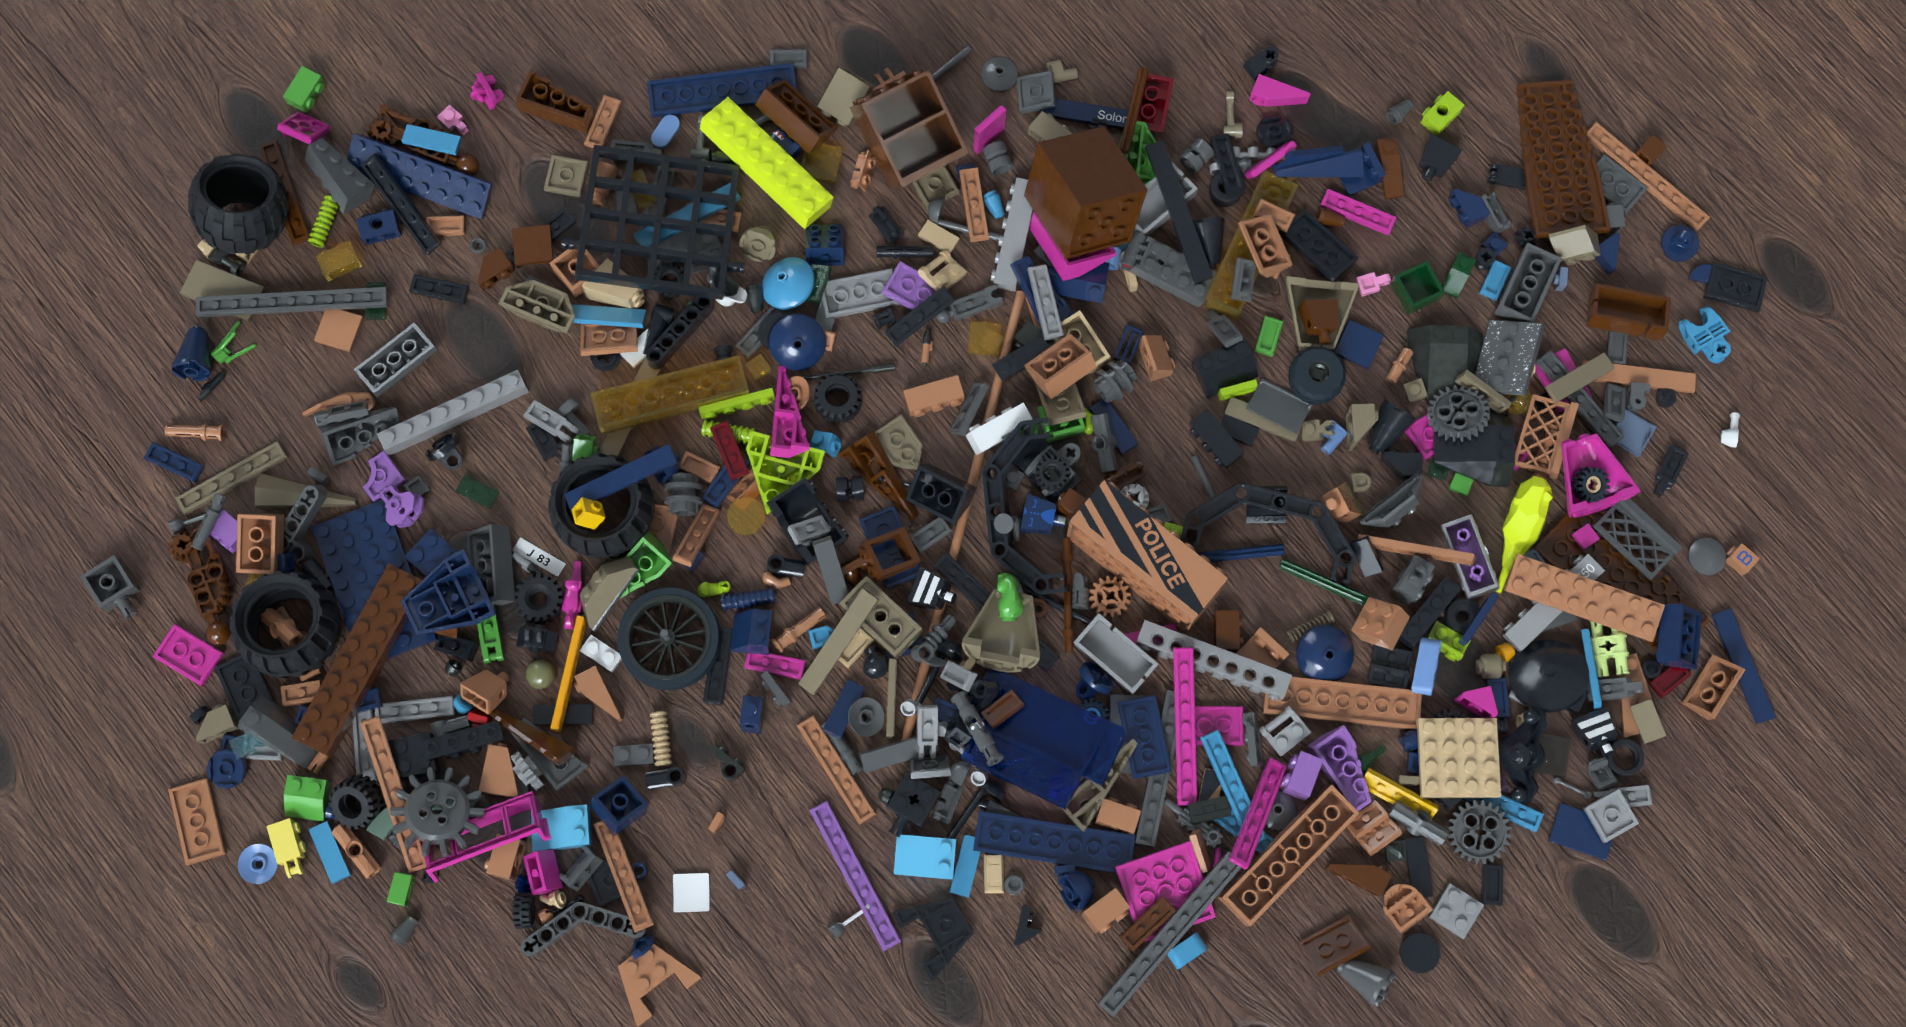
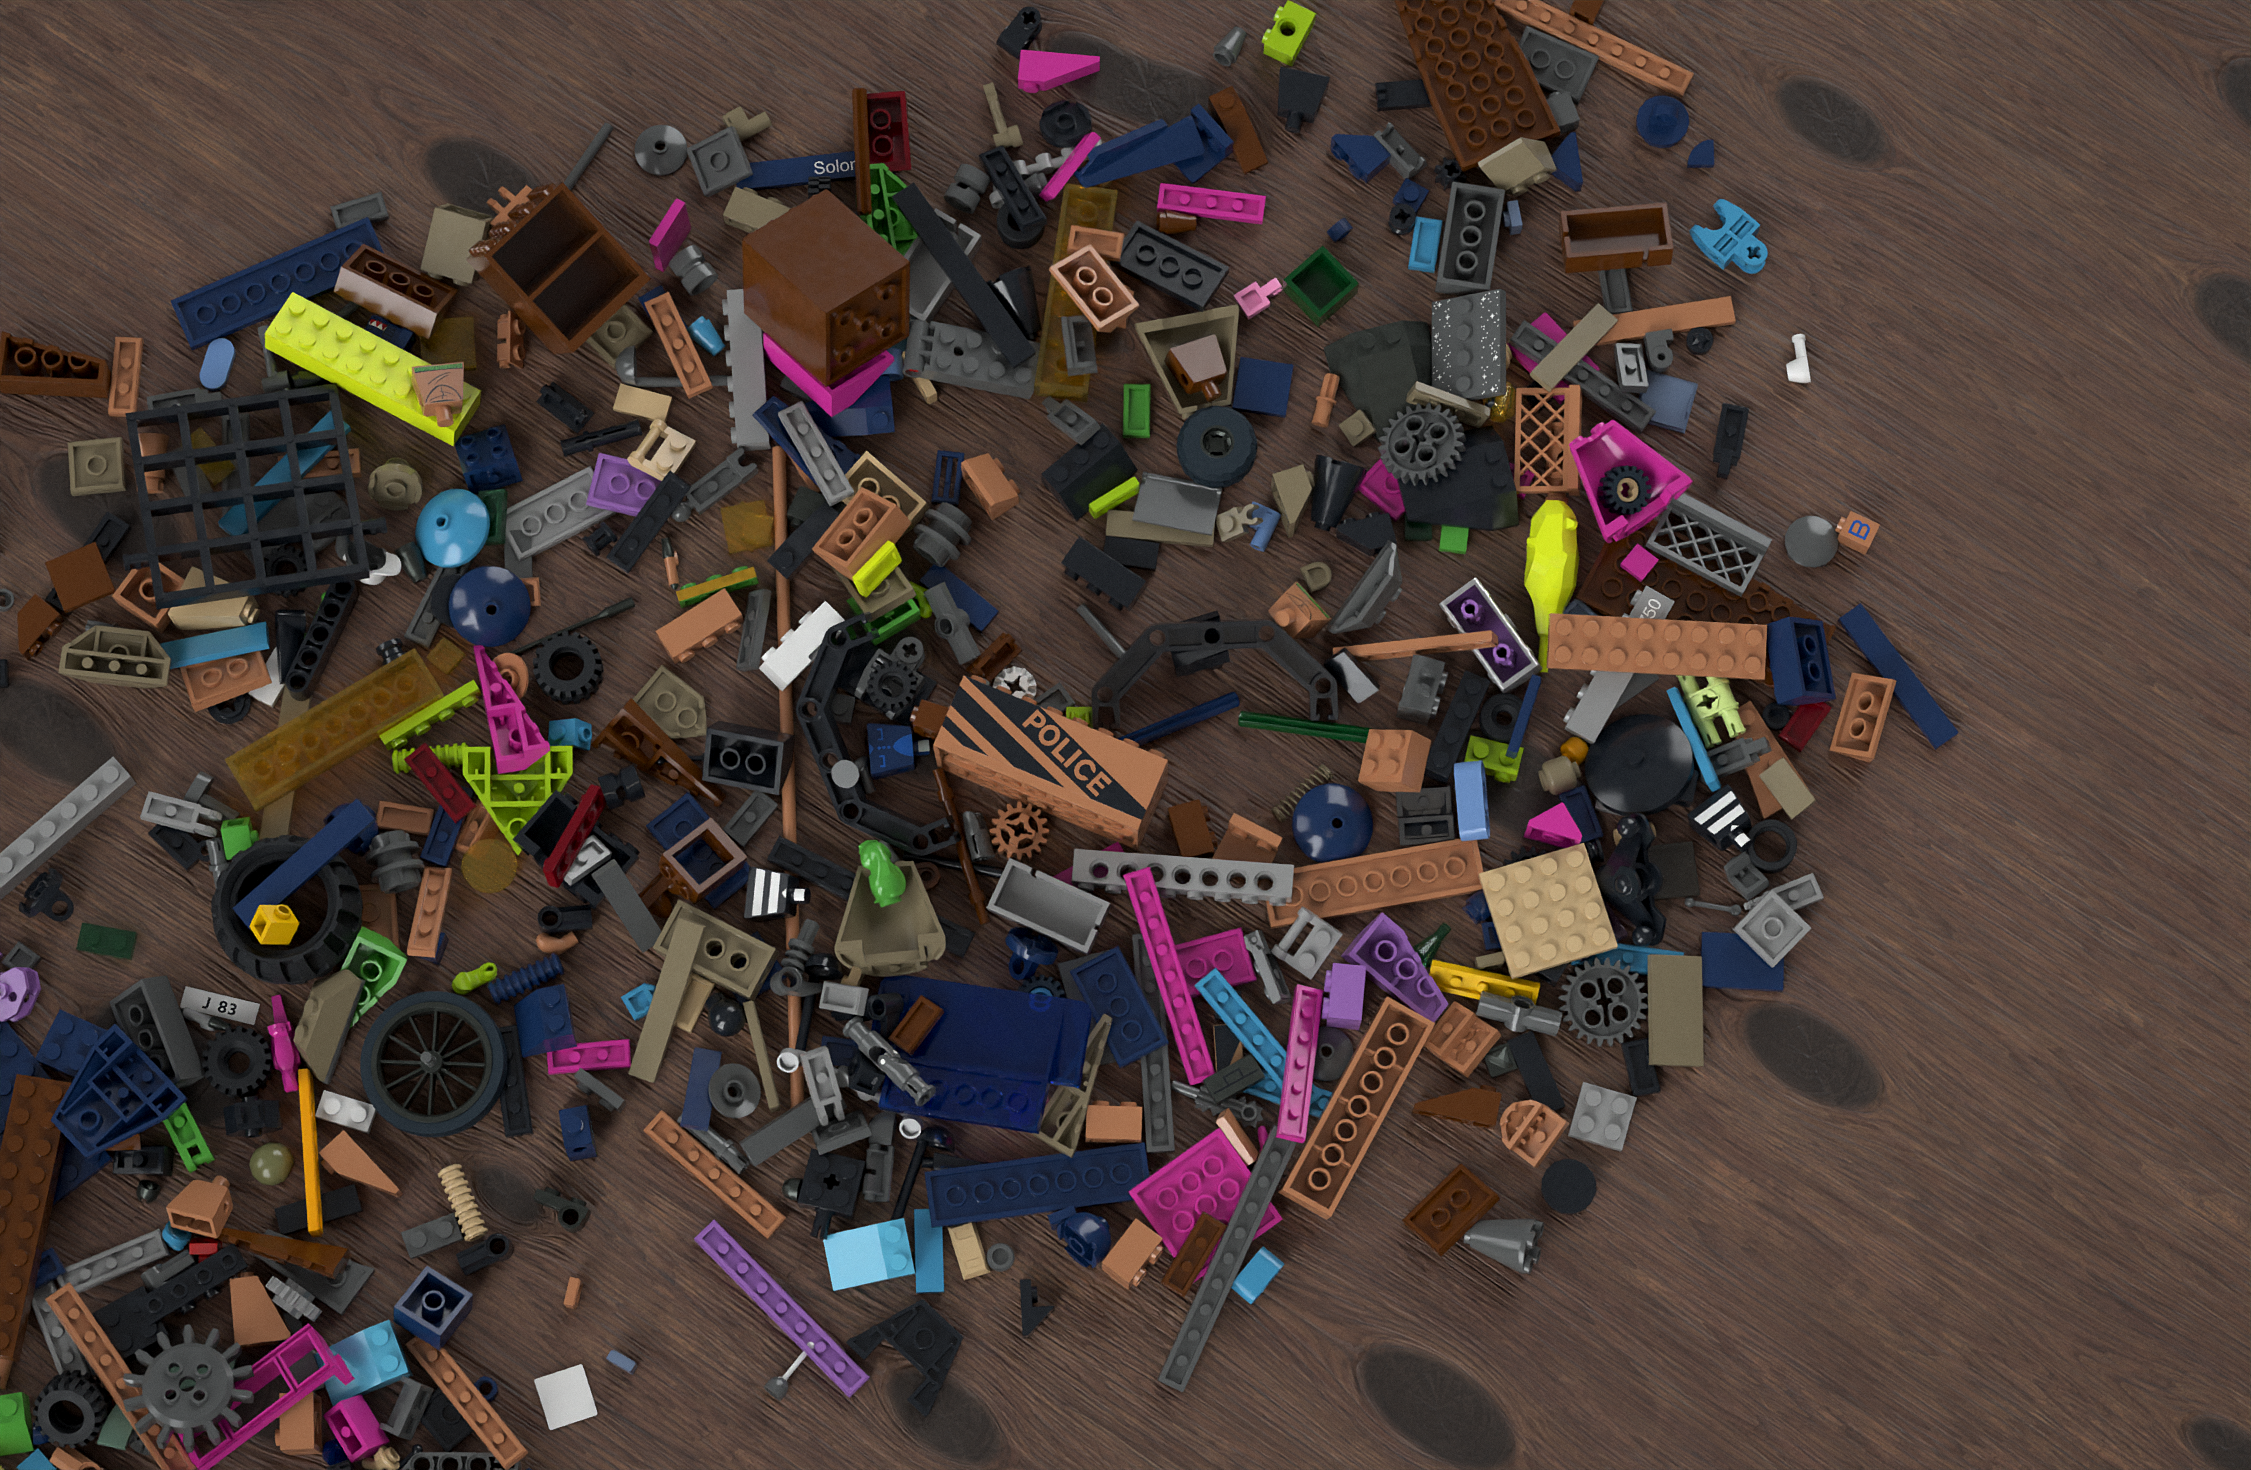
camera: 15 degrees left, 0 degrees up
(791, 634) = (599, 1009): nougat pin -> none
(806, 188) = (439, 390): none -> nougat torso
(808, 512) = (574, 836): none -> dark red plate
(936, 372) = (739, 579): none -> plate
(1064, 391) = (877, 569): none -> neon yellow tile
(1440, 254) = (1340, 230): none -> dark blue axle
(1458, 274) = (1371, 252): dark green slope -> none
(1527, 852) = (1675, 1010): none -> dark tan tile
(1735, 287) = (1753, 160): black tile -> none

